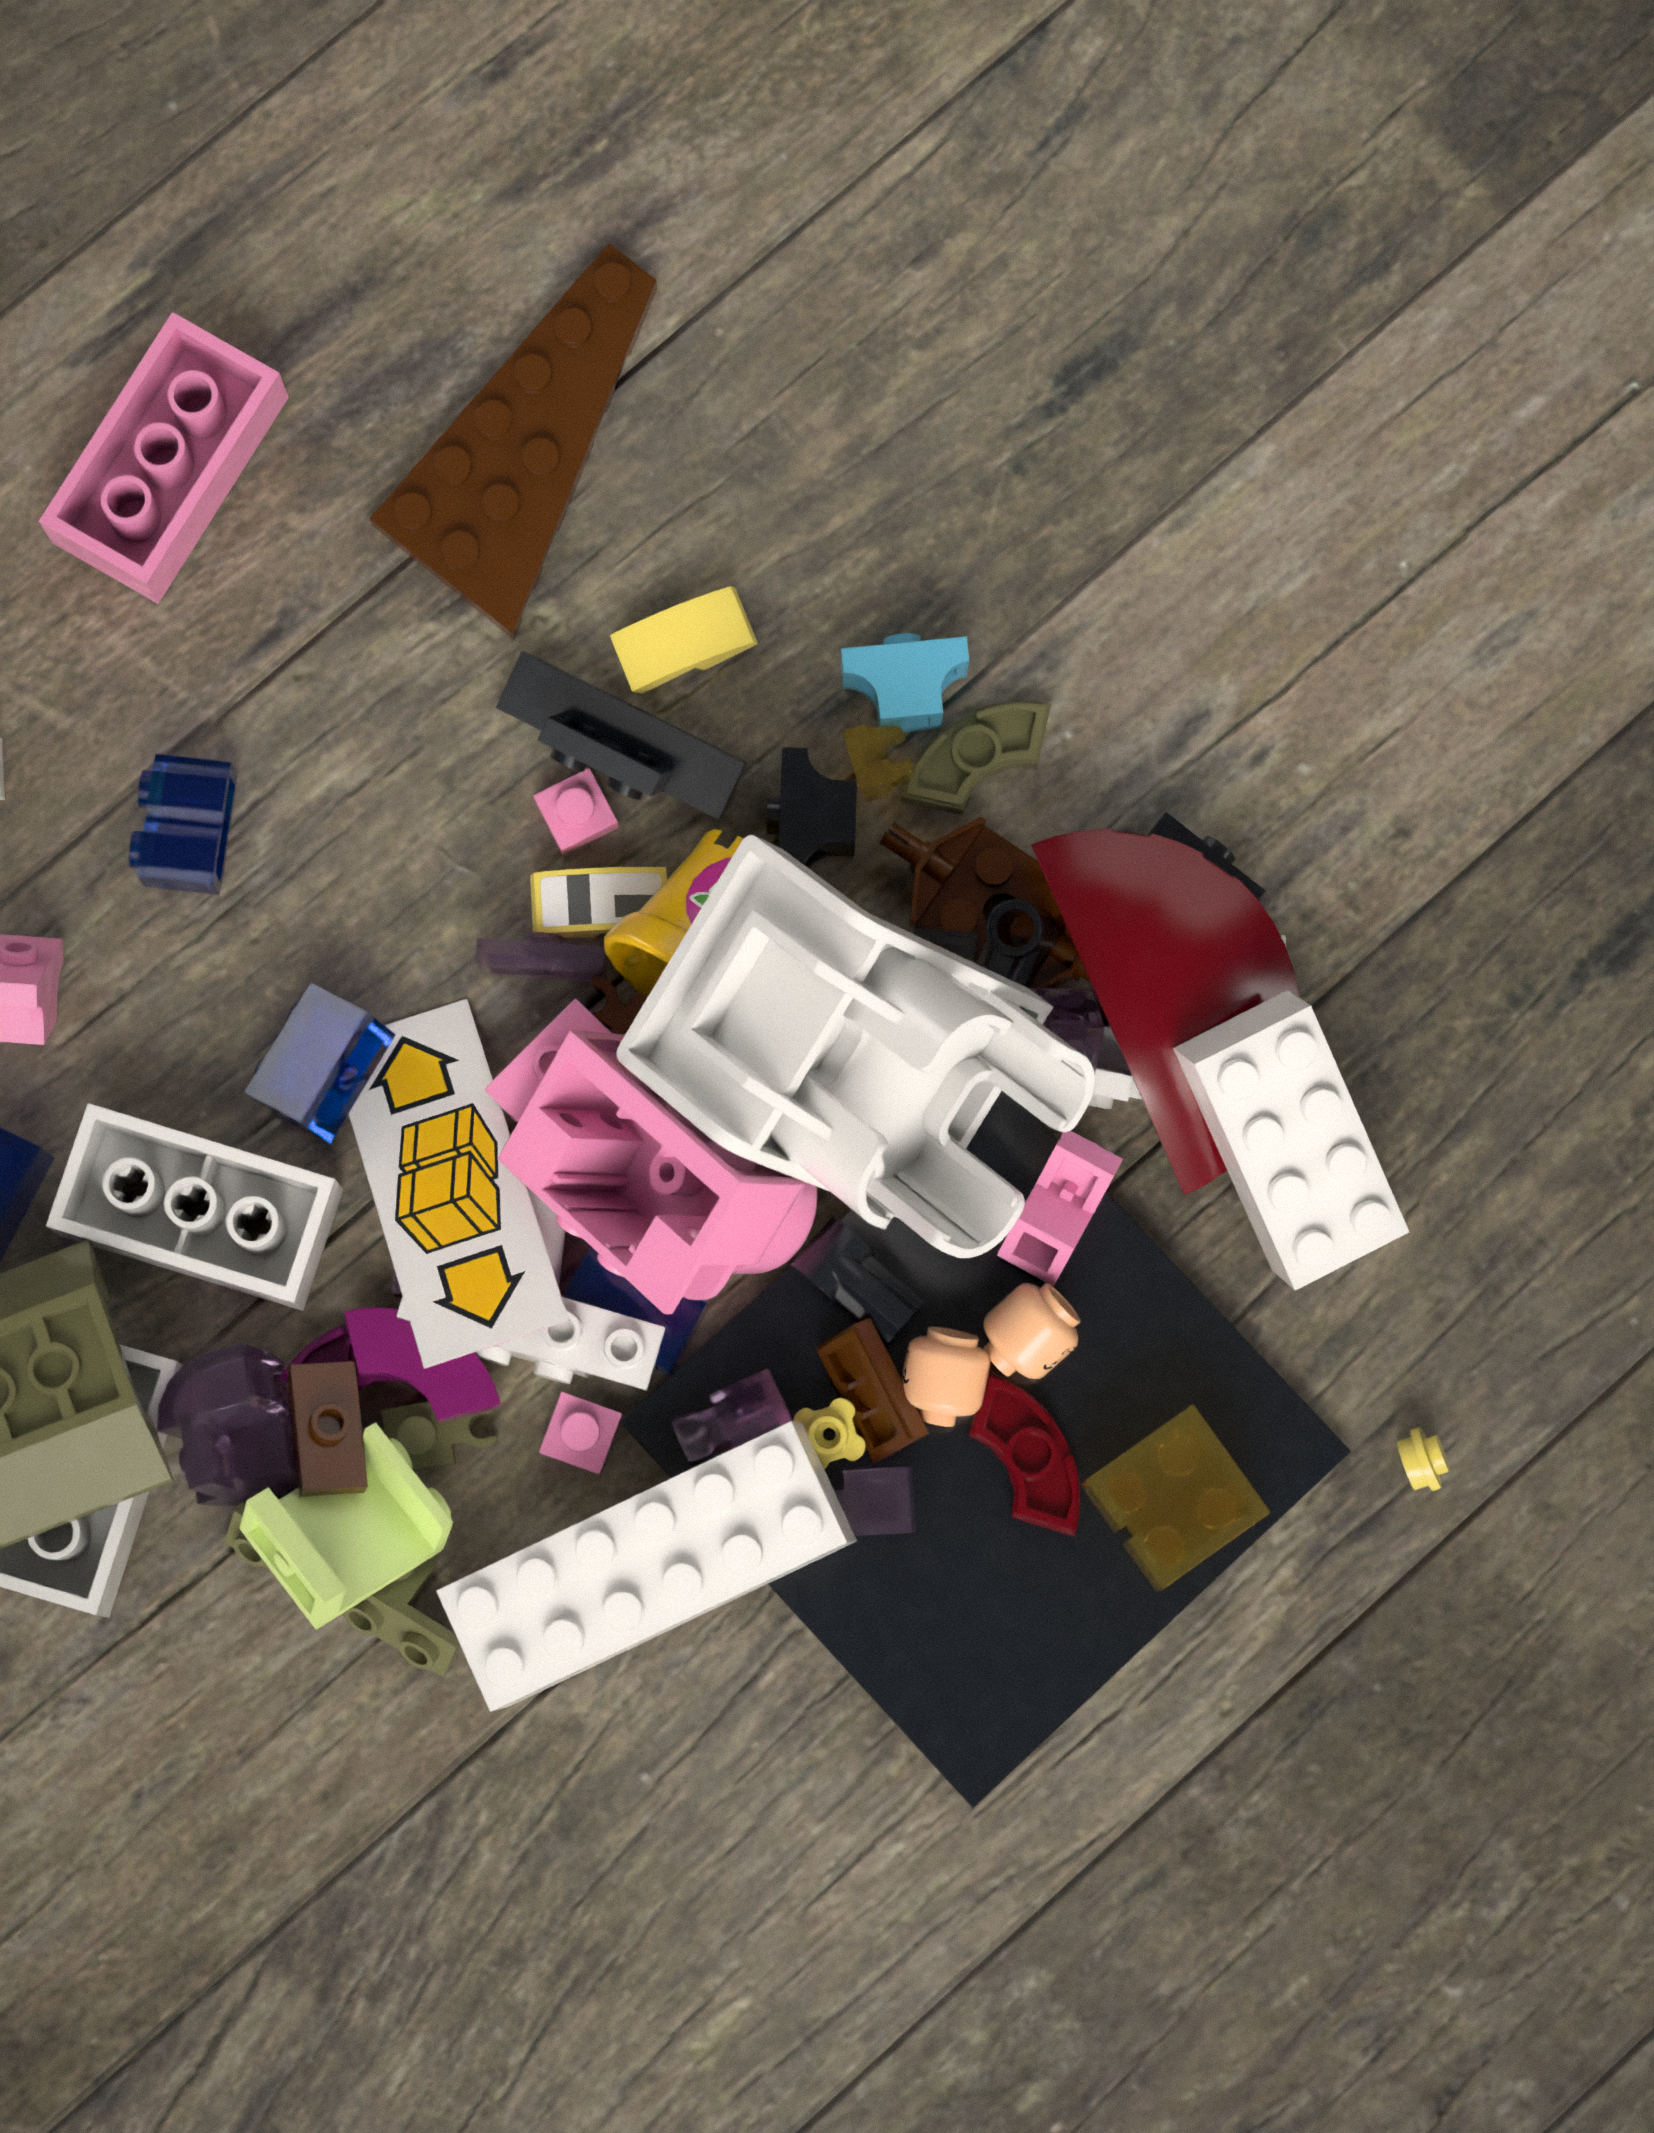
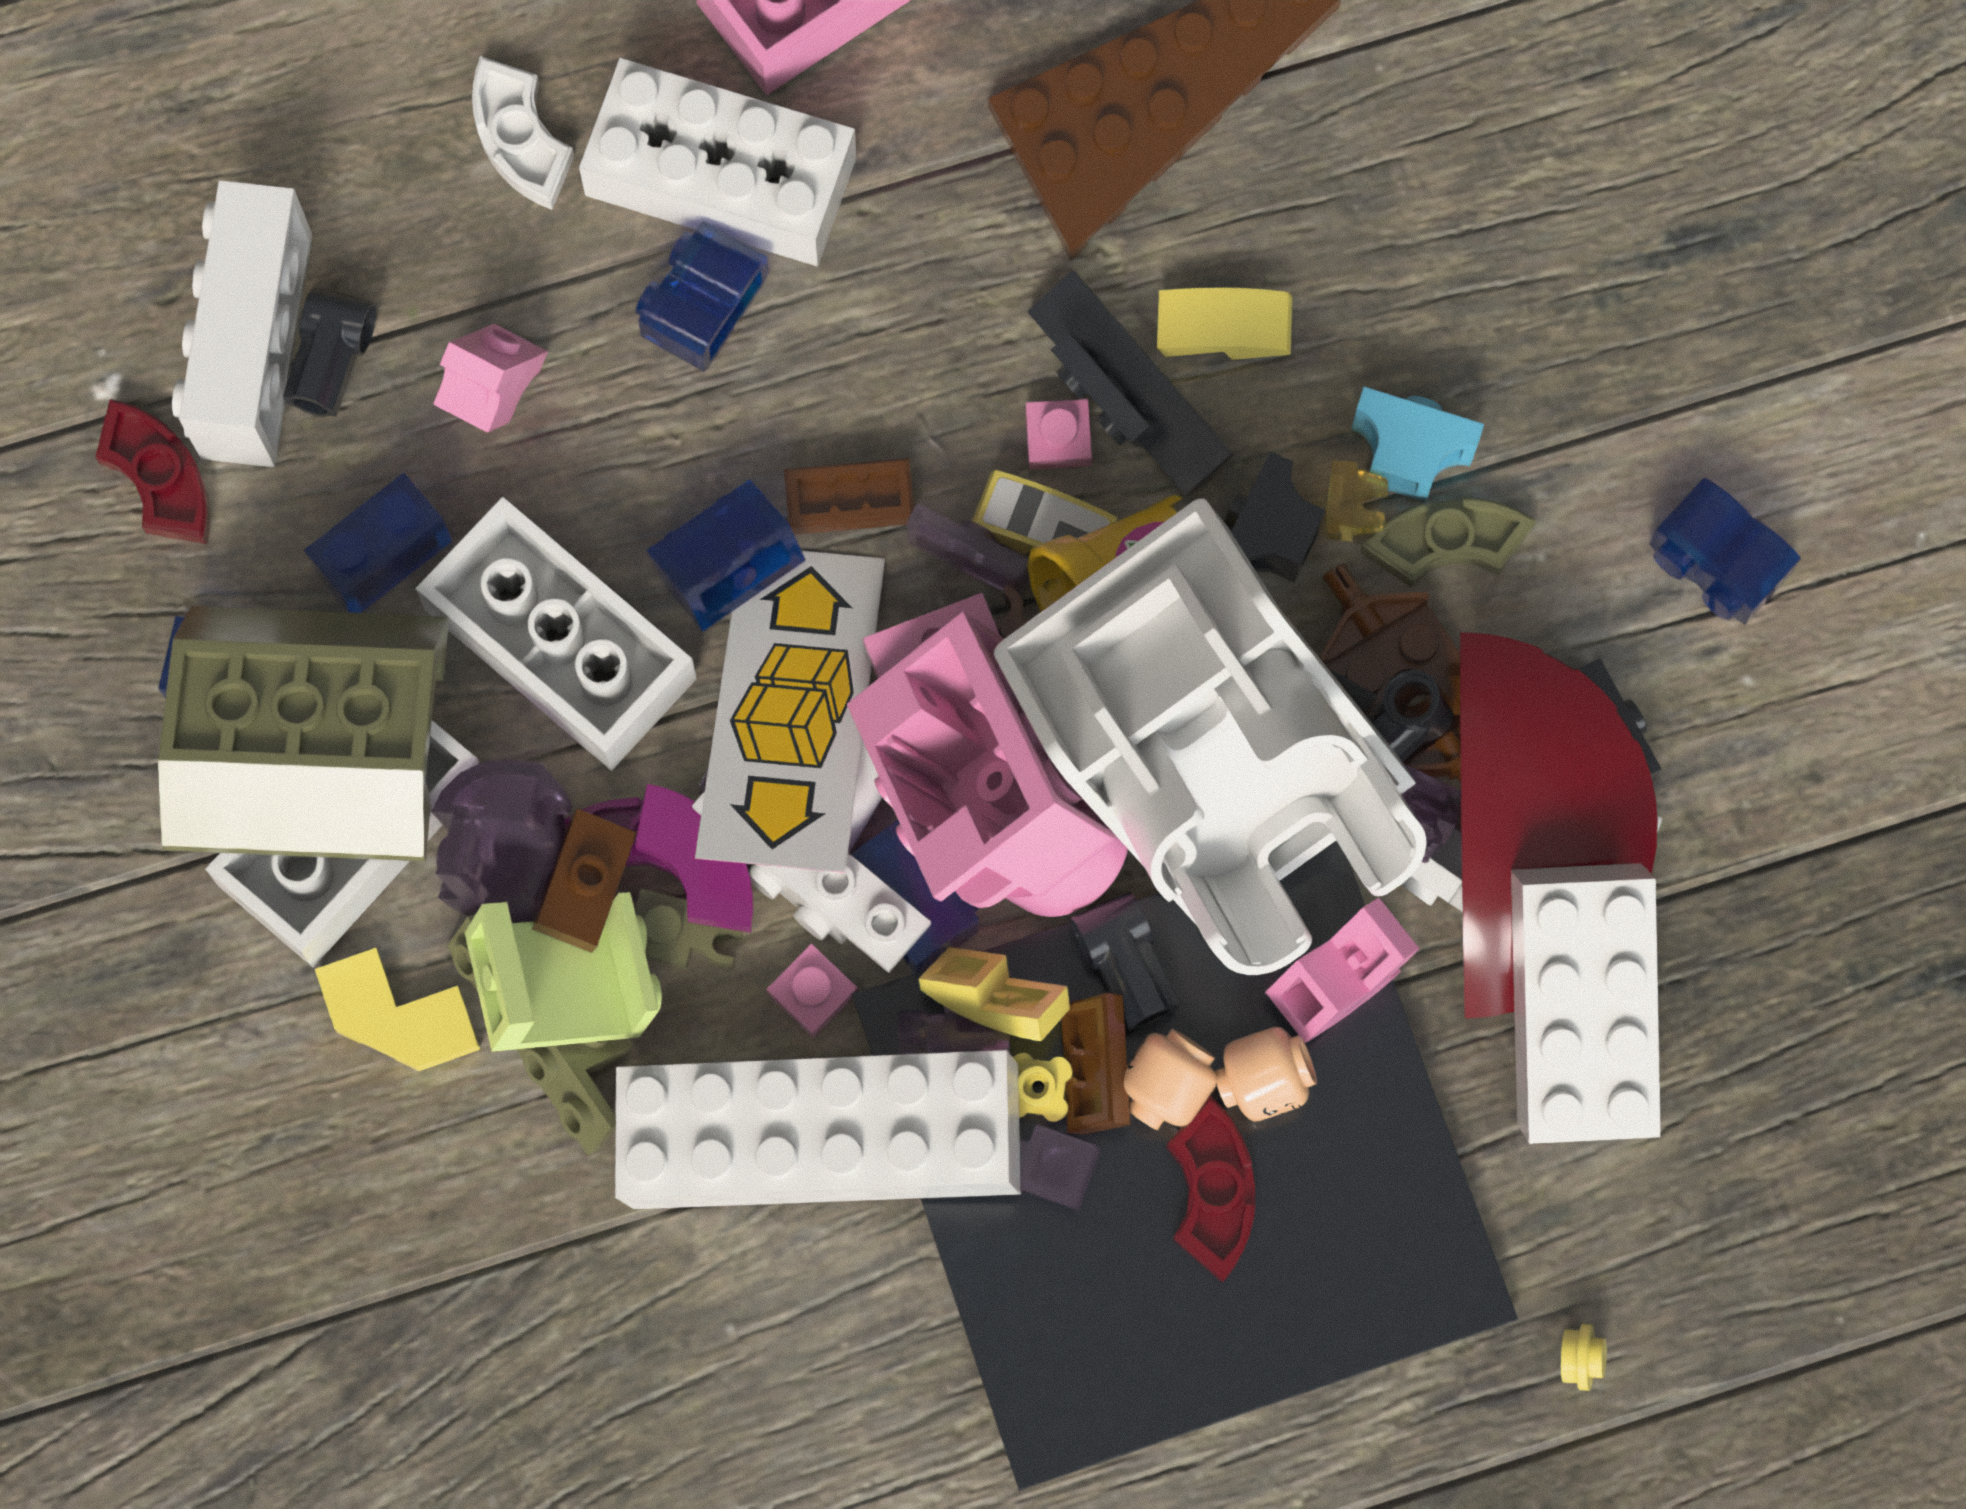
camera: 25 degrees right, 5 degrees down
(119, 656) = (713, 124): none -> white brick
(179, 1637) = (413, 1033): none -> light yellow tile
(408, 955) = (849, 496): none -> reddish brown plate
(740, 1370) = (980, 989): none -> light yellow slope
(1175, 1498) = (1333, 1283): clear yellow piece -> none
(1233, 661) = (1723, 552): none -> clear blue brick

